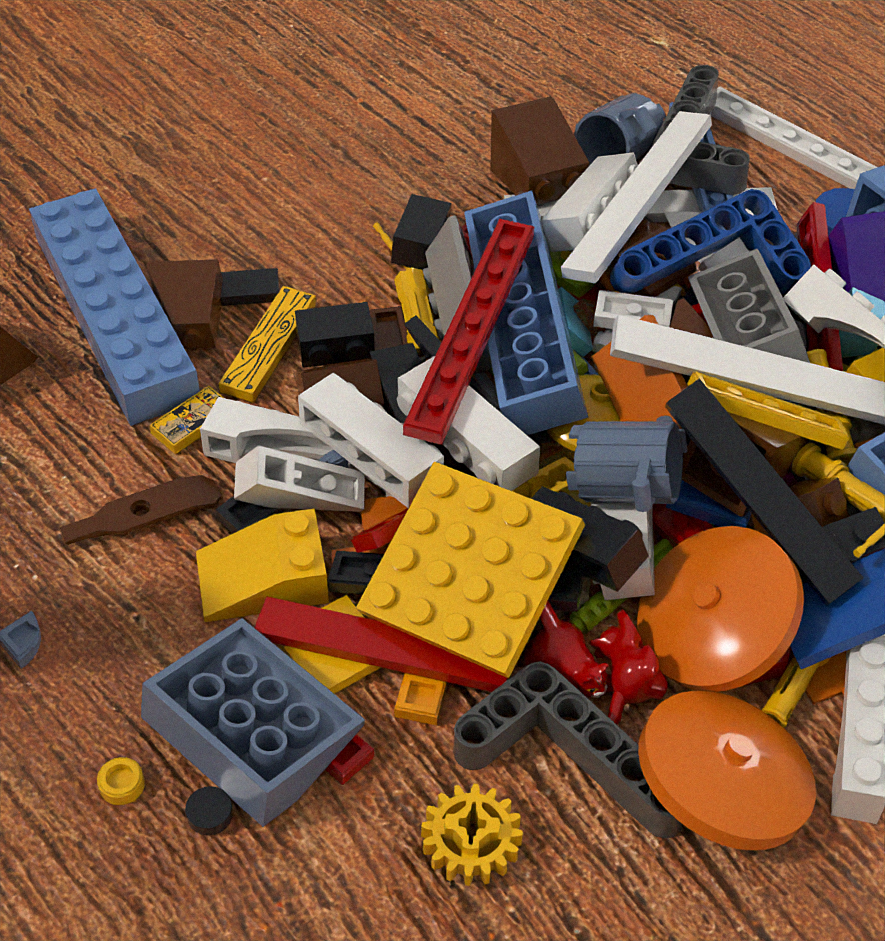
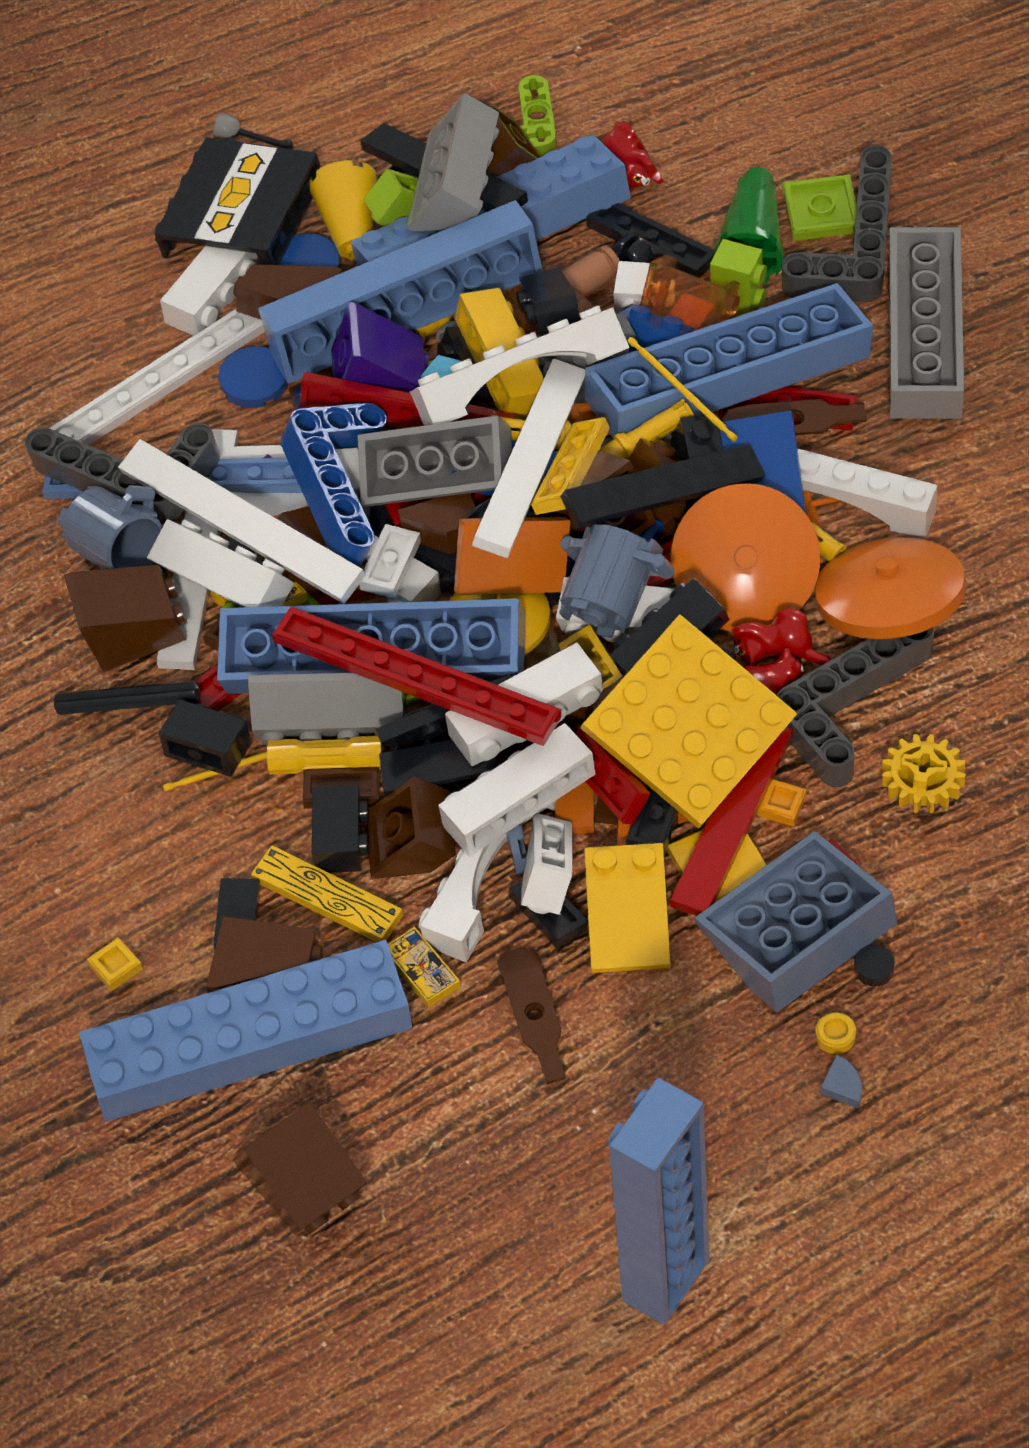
camera: 75 degrees left, 5 degrees up
(54, 792) = (843, 1083): none -> sand blue tile
(189, 219) = (114, 964): none -> yellow tile
(457, 178) = (126, 697): none -> black axle

